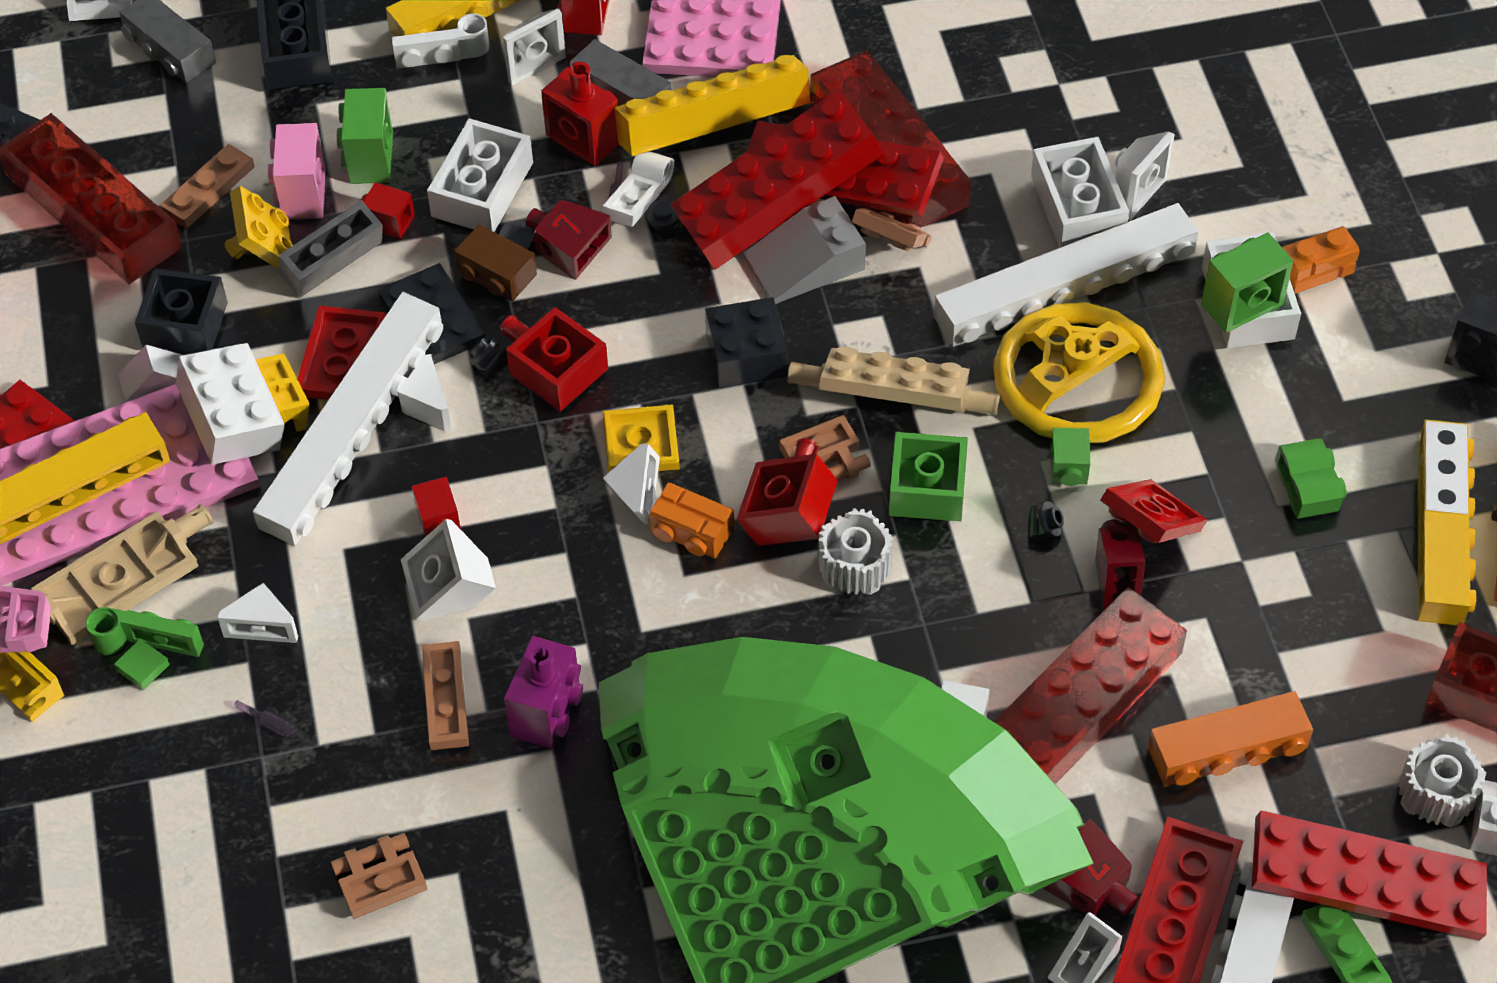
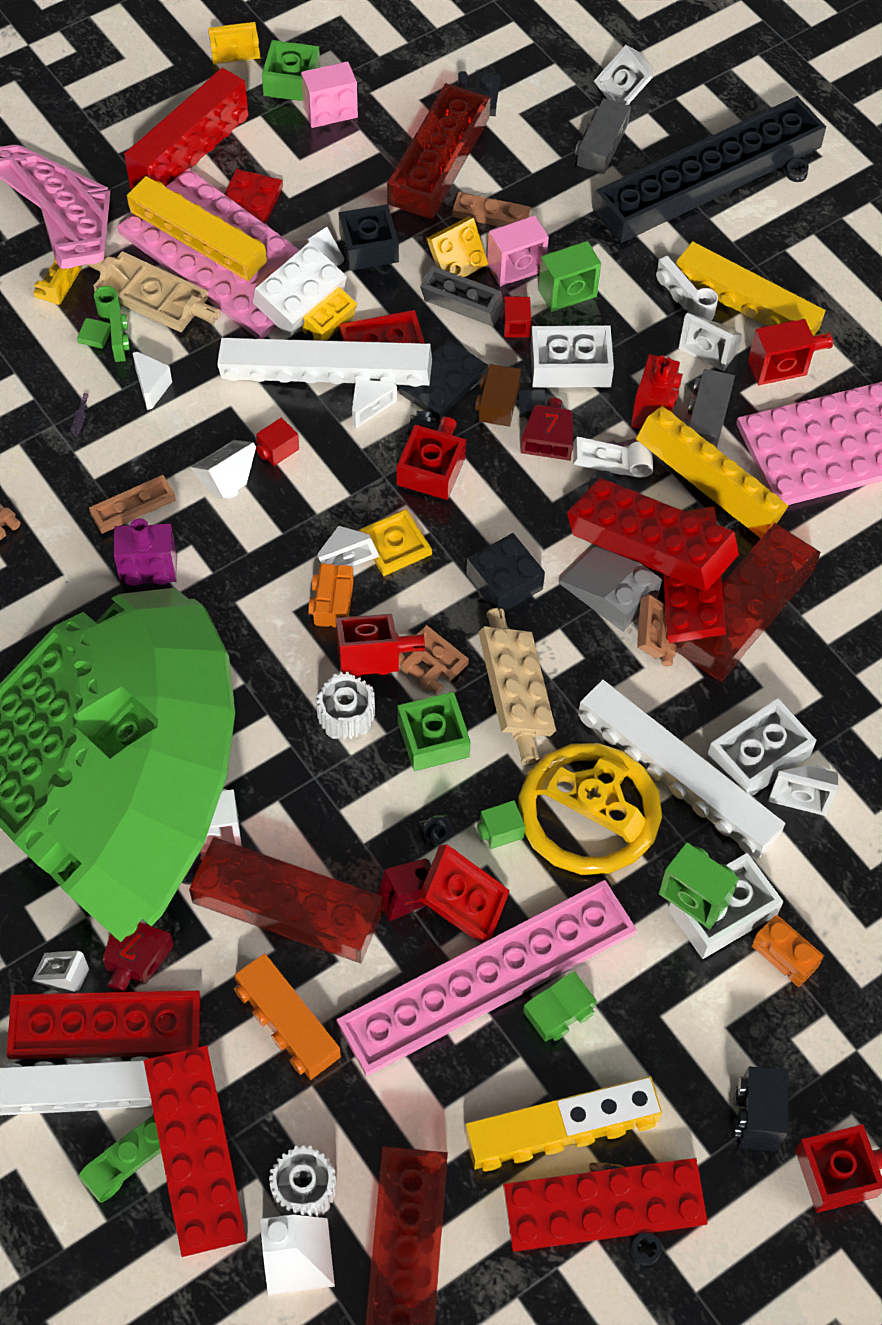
camera: 65 degrees right, 5 degrees up
(1250, 539) = (485, 977): none -> bright pink plate

